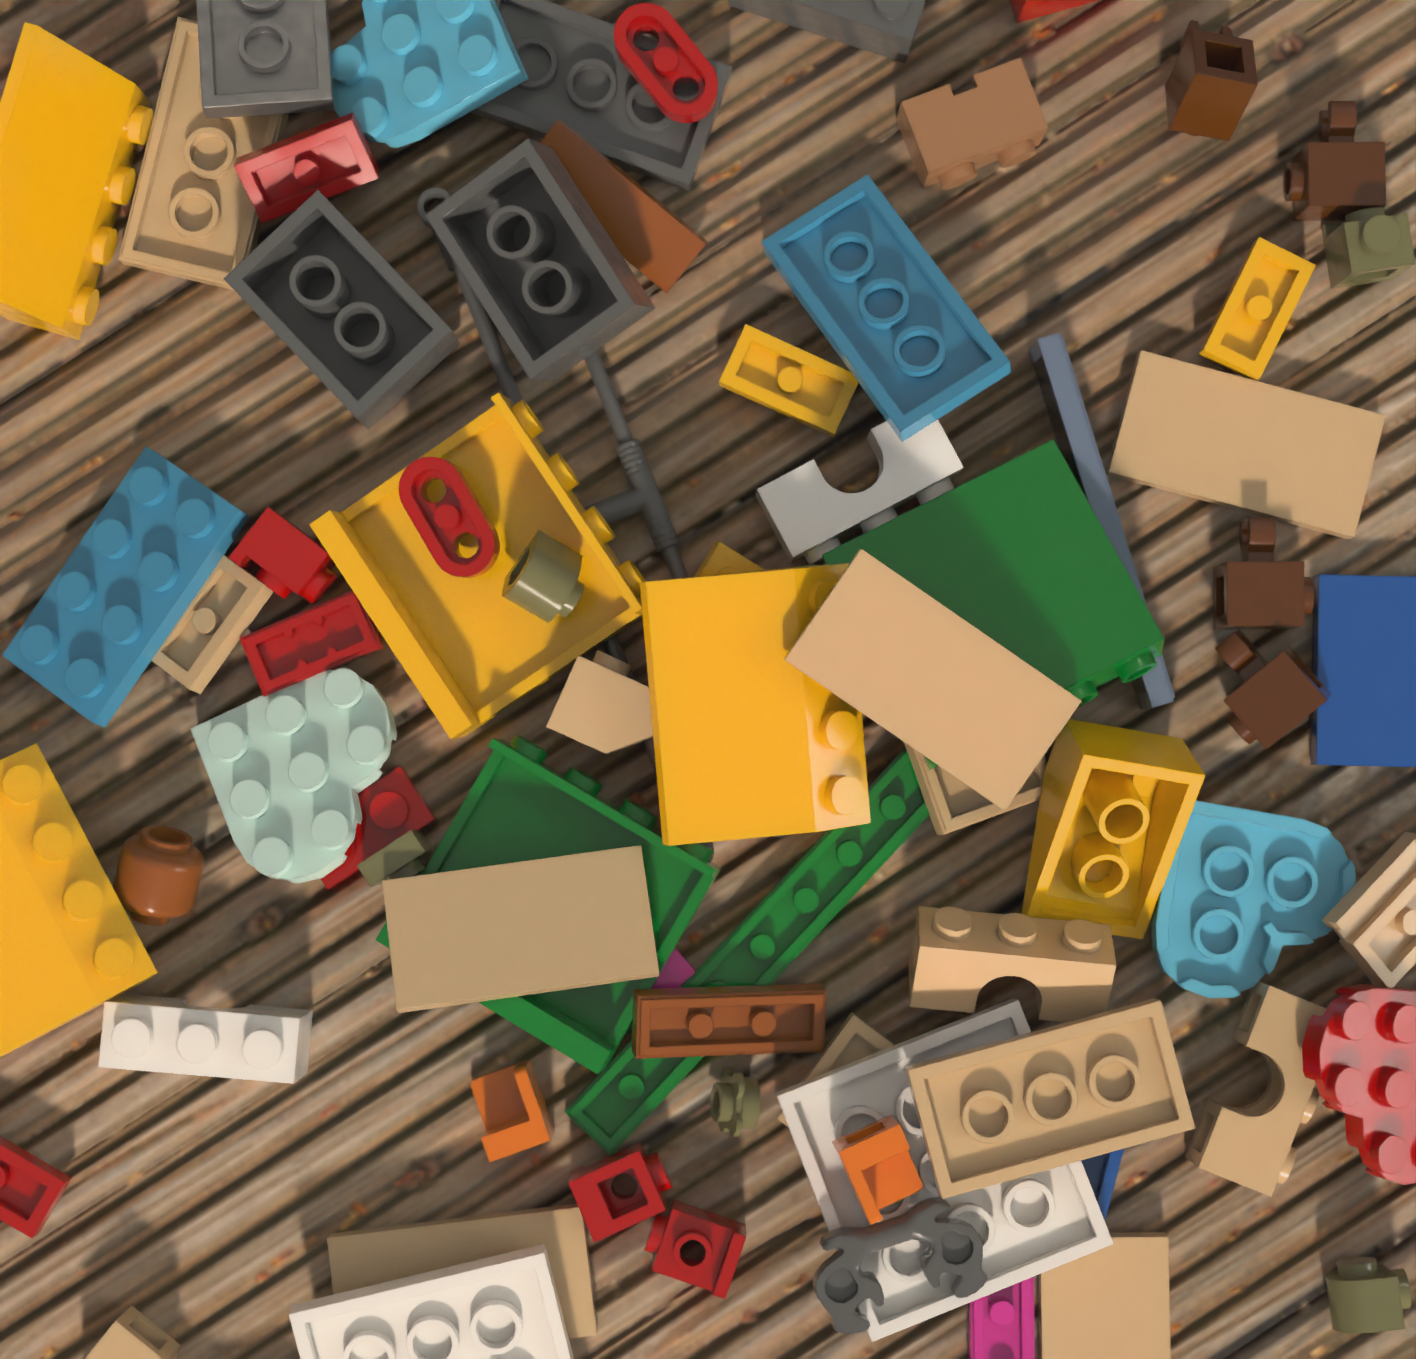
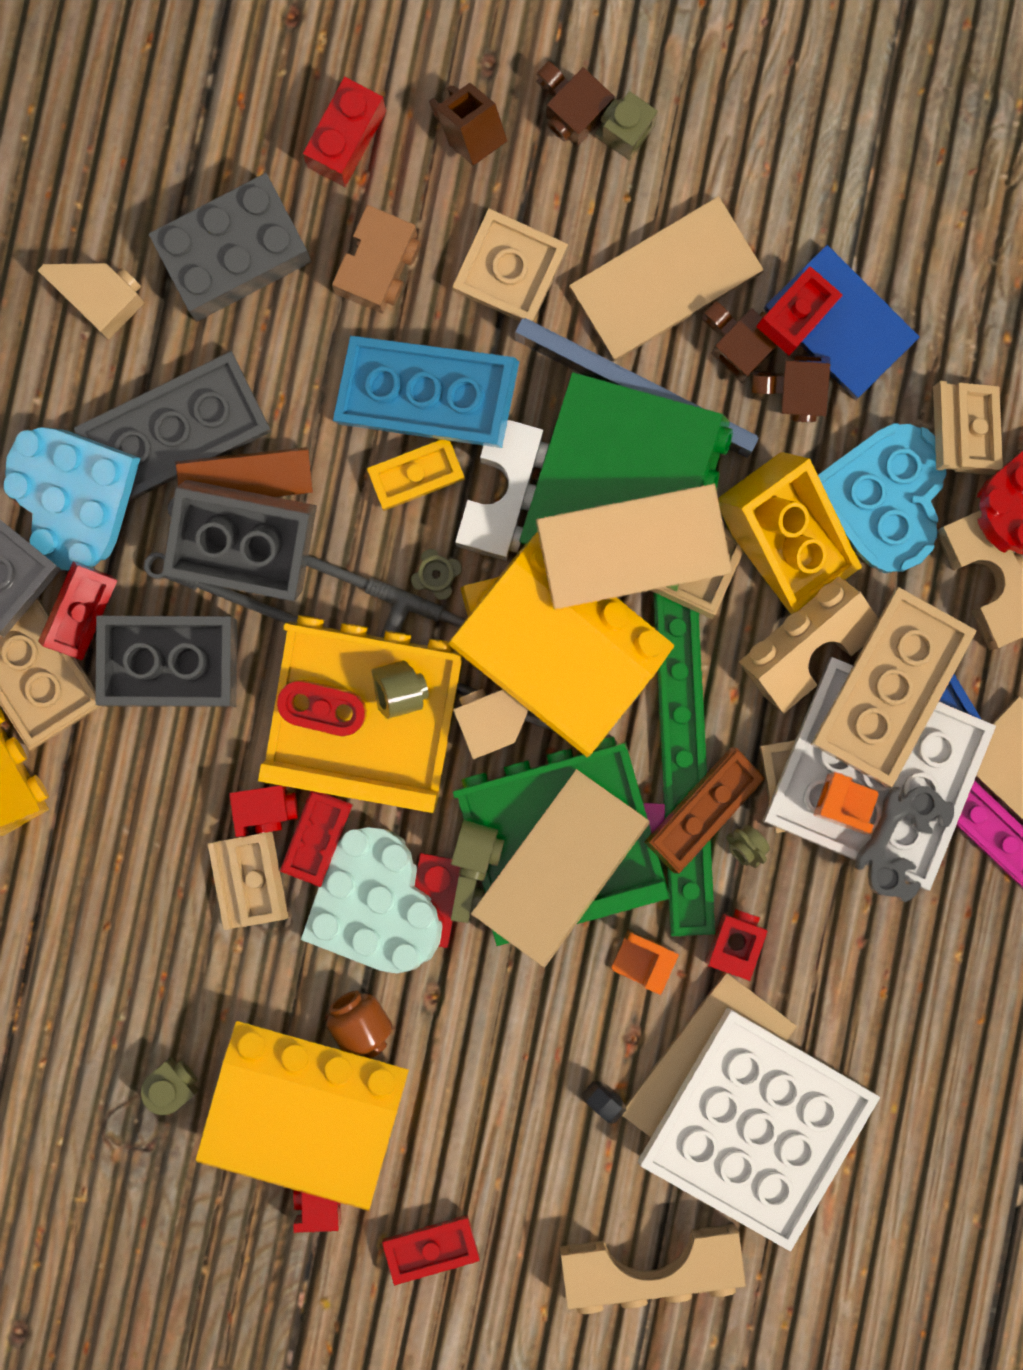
camera: 45 degrees left, 0 degrees up
(125, 587) = (198, 903): dark azure plate -> none
(205, 1041) = (463, 1079): white arch -> none
(323, 1208) = (604, 1101): none -> black tile
(455, 822) = (476, 850): none -> olive plate
(668, 64) = (200, 382): red plate -> none
(712, 486) = (441, 586): none -> olive plate
(719, 1235) = (808, 917): red brick -> none
(1100, 270) = (509, 266): none -> tan plate
(1257, 309) = (604, 208): yellow plate -> none
(1349, 614) = (799, 310): none -> red plate

